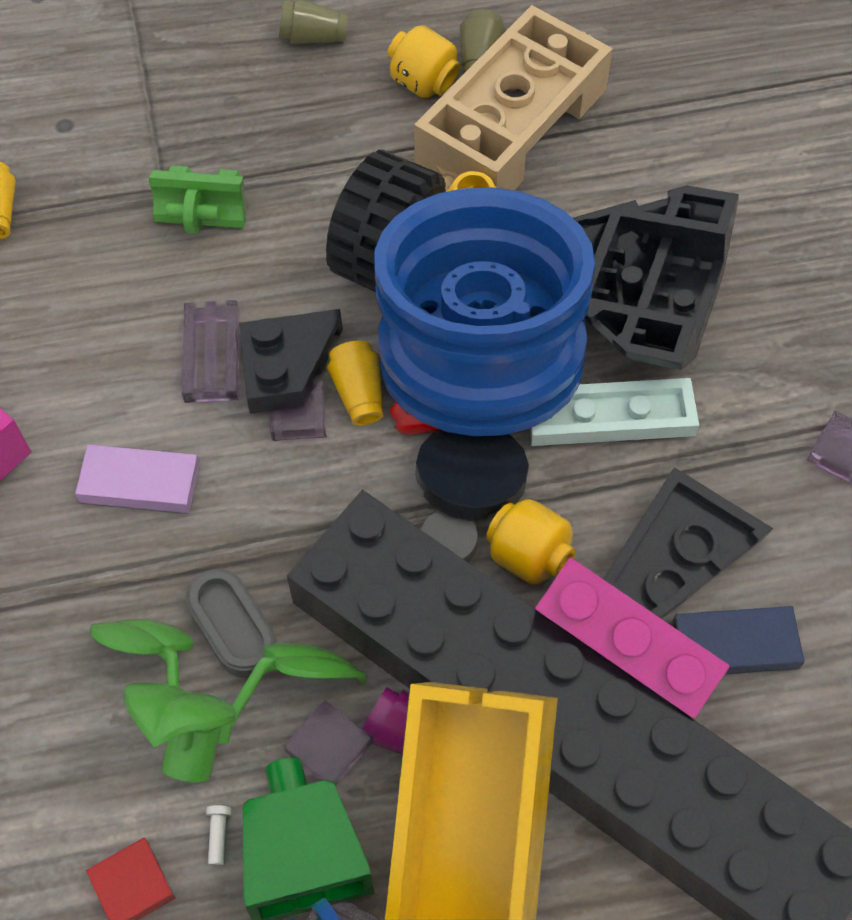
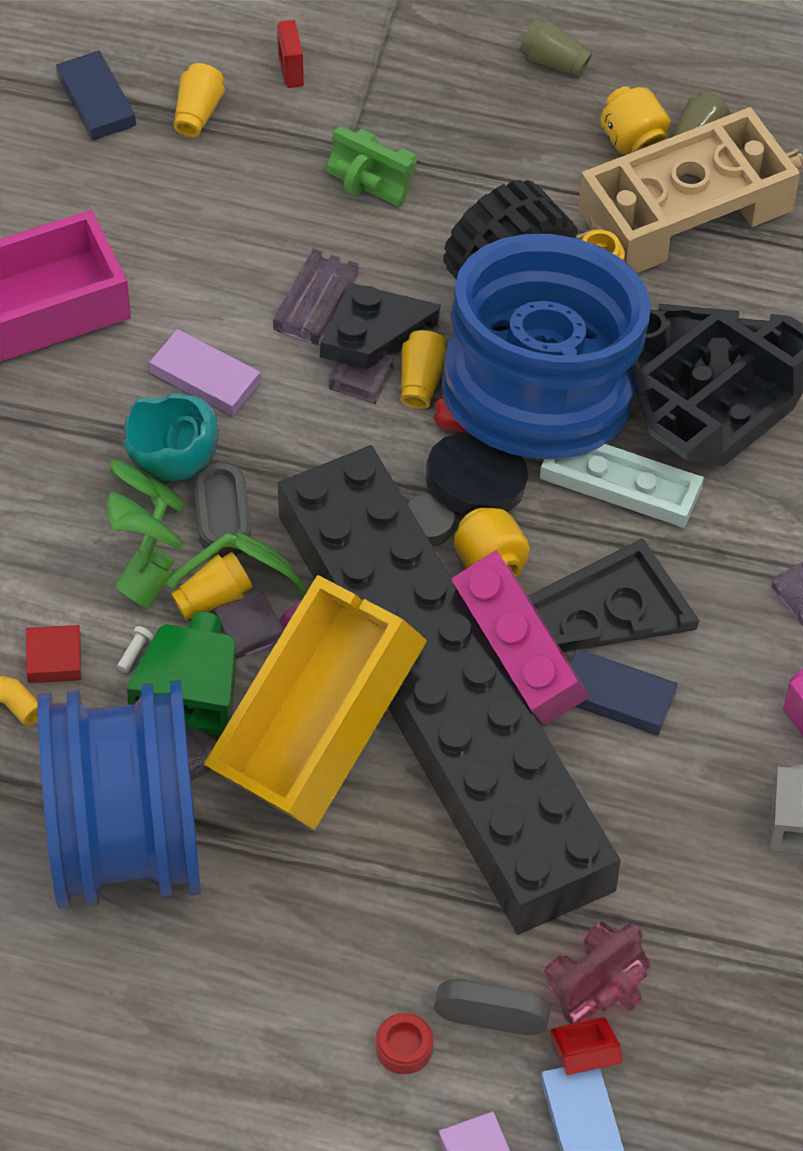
camera: 25 degrees right, 5 degrees down
(63, 119) = (290, 53): none -> red tile
(141, 570) = (171, 436): none -> teal hair
(268, 721) = (212, 586): none -> yellow cone

